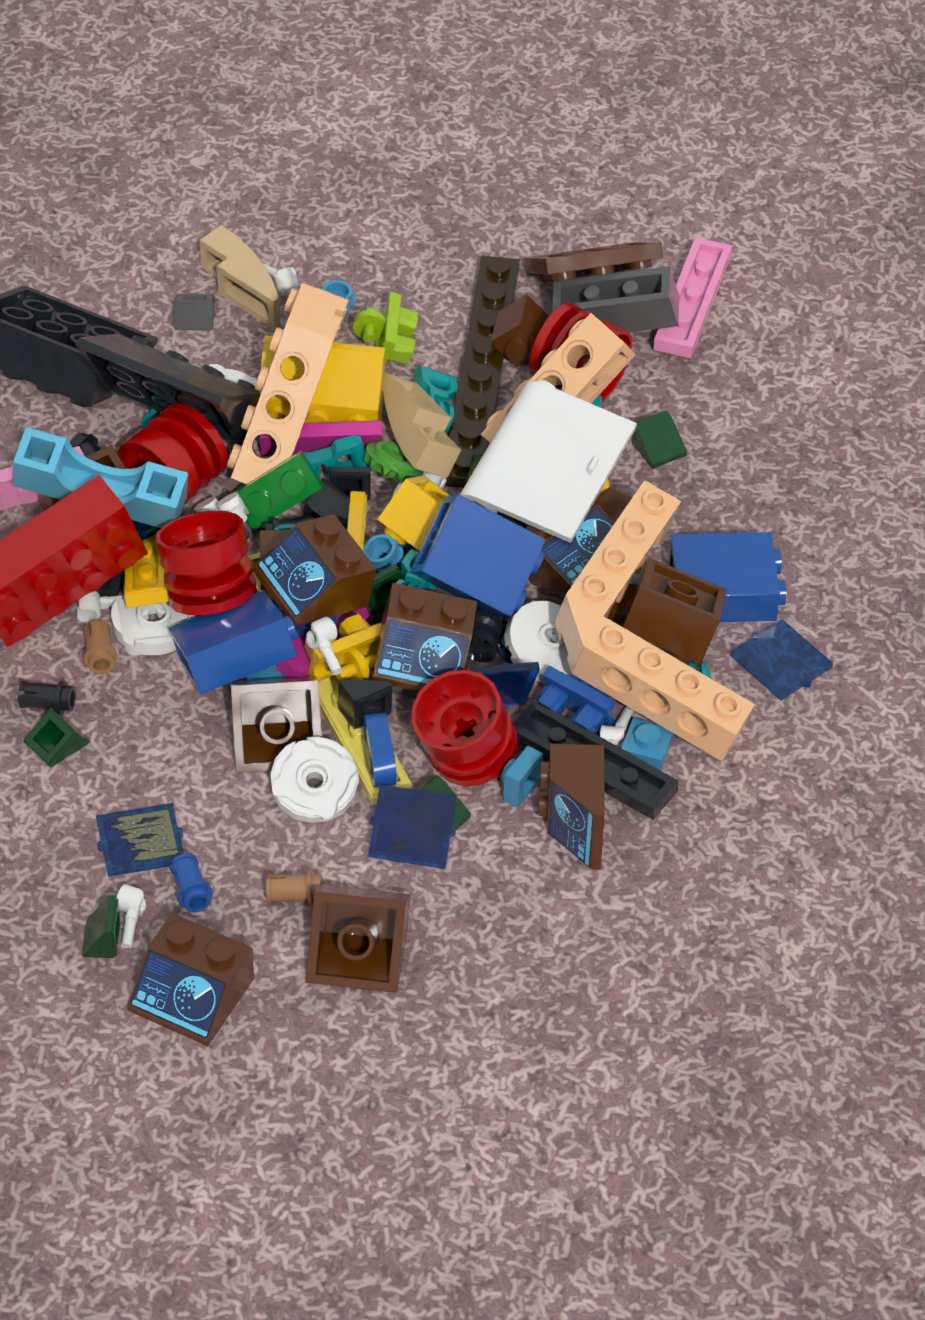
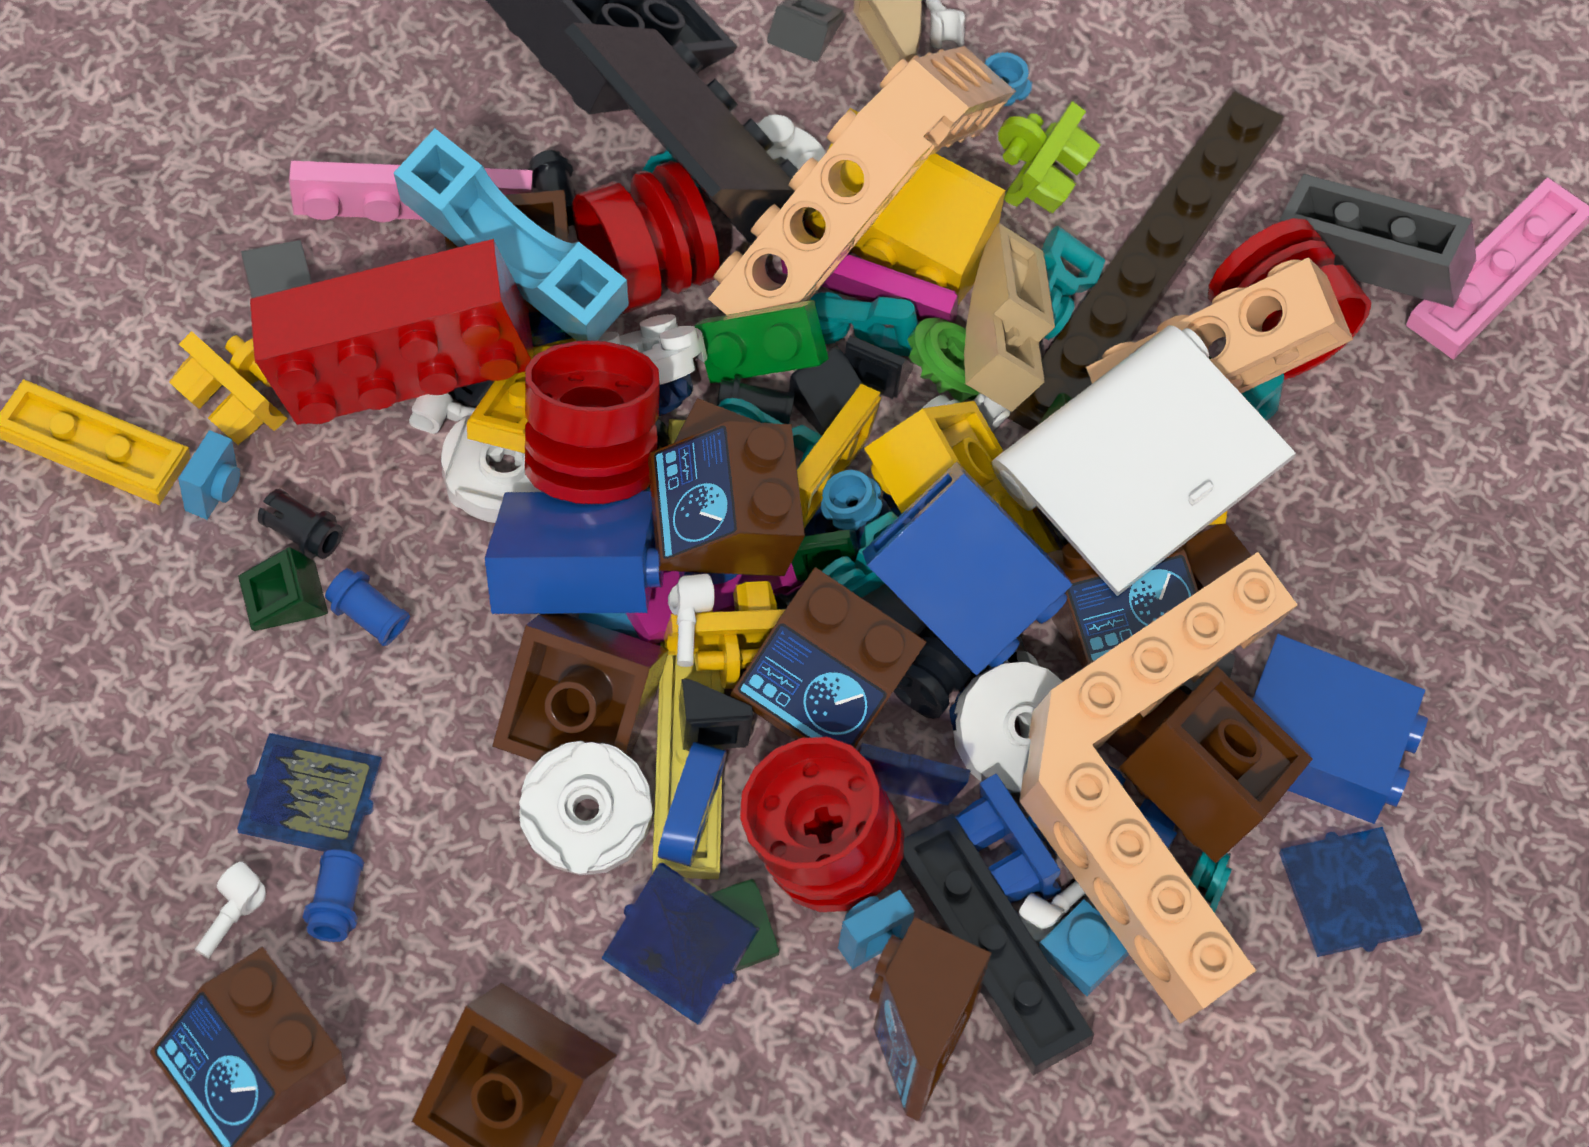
camera: 20 degrees right, 10 degrees up
(100, 654) = (403, 490): medium nougat pin -> none
(103, 930) = (179, 921): dark green slope -> none
(115, 725) = (365, 605): none -> blue pin
(292, 887) = (469, 964): medium nougat pin -> none
(518, 329) = (1222, 222): reddish brown brick -> none
(594, 260) = (1380, 161): reddish brown plate -> none
(658, 440) = (1342, 469): dark green slope -> none

